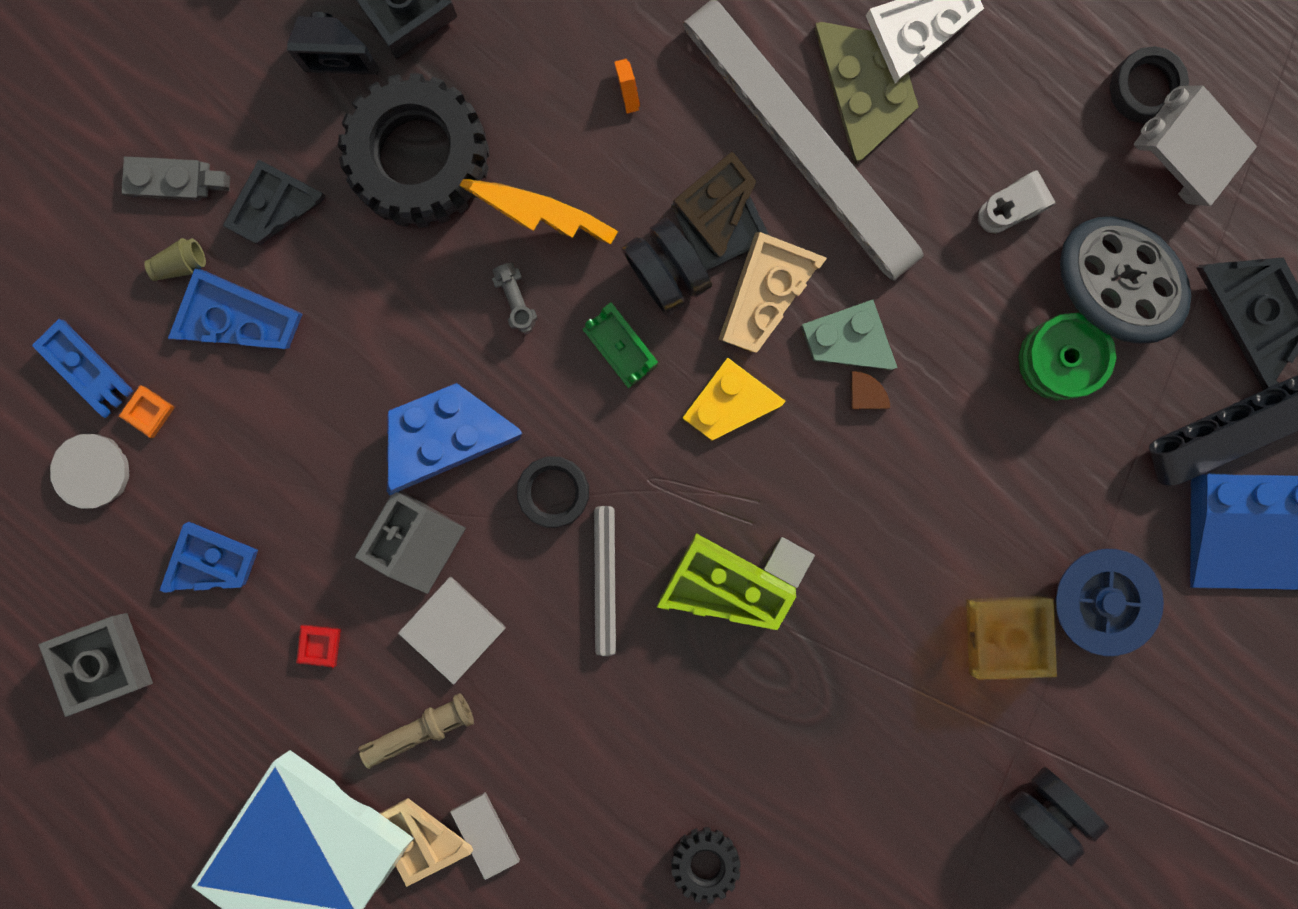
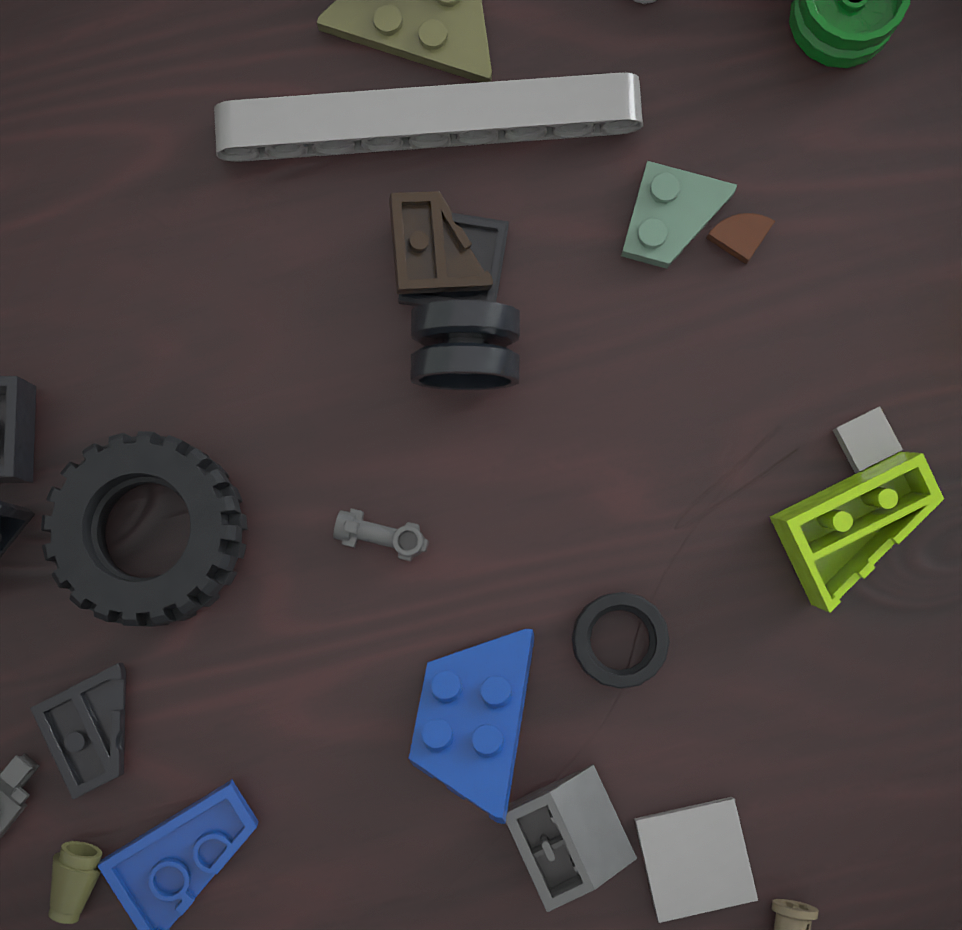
camera: 50 degrees left, 5 degrees down
(529, 208) = (300, 445): light orange slope -> none
(604, 580) = (755, 652): light grey axle -> none
(620, 345) = (512, 456): green hinge -> none
(627, 85) = (240, 258): orange tile -> none
(730, 402) = (652, 383): yellow wing -> none
(767, 286) = (555, 258): tan wing -> none

